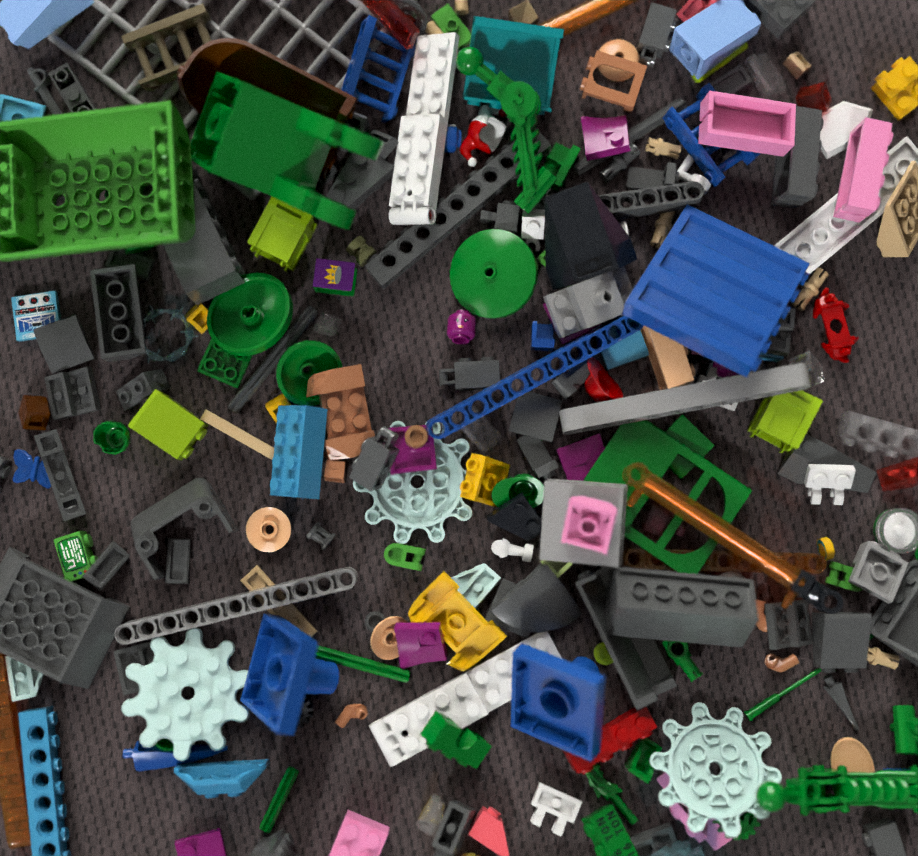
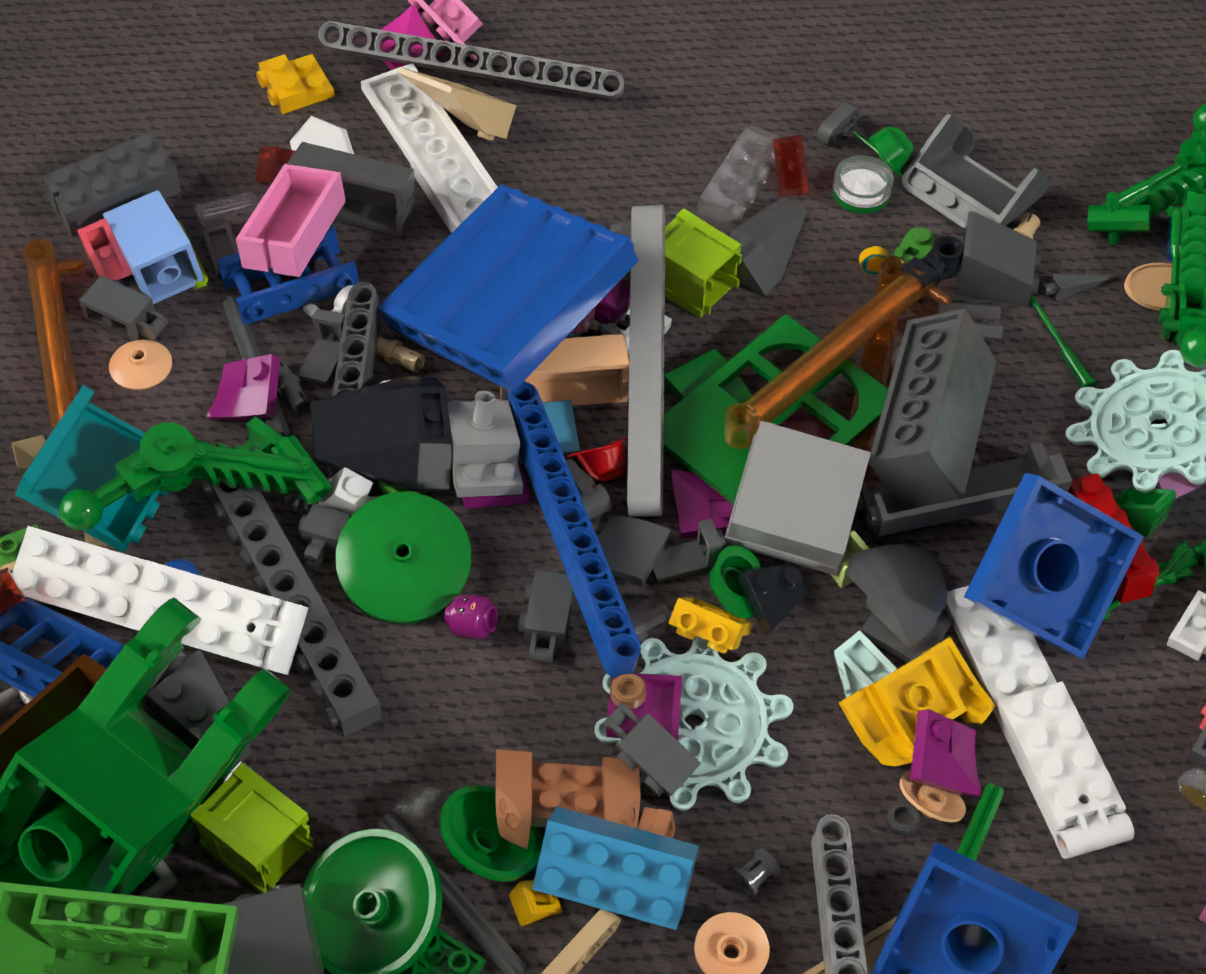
camera: 80 degrees left, 30 degrees down
(335, 277) = (345, 772): dark purple piece -> none
(351, 711) = (1043, 878): nougat arm -> none
(360, 250) = (313, 731): olive wheel -> none
(396, 555) = (803, 768): bright green plate -> none
(445, 735) = (1099, 724): green arch -> none
(483, 133) = (187, 535): piece -> none
(504, 548) = (815, 624): white leg -> none
(541, 337) = (512, 523): blue panel -> none
(589, 523) = (805, 465): bright pink slope -> none
(594, 90) = (166, 396): nougat panel -> none
(602, 655) = (983, 529): lime tile -> none
(663, 148) = (284, 335): tan pin -> none
(683, 660) = (1003, 436): green pin -> none
(779, 664) = (1022, 335): nougat arm -> none
(797, 64) = (225, 176): tan slope -> none
(828, 476) = (783, 233): white plate -> none
(831, 308) = (606, 195): red piece -> none
(863, 170) = (395, 116): bright pink piece -> none
(878, 571) = (911, 210): light grey plate -> none

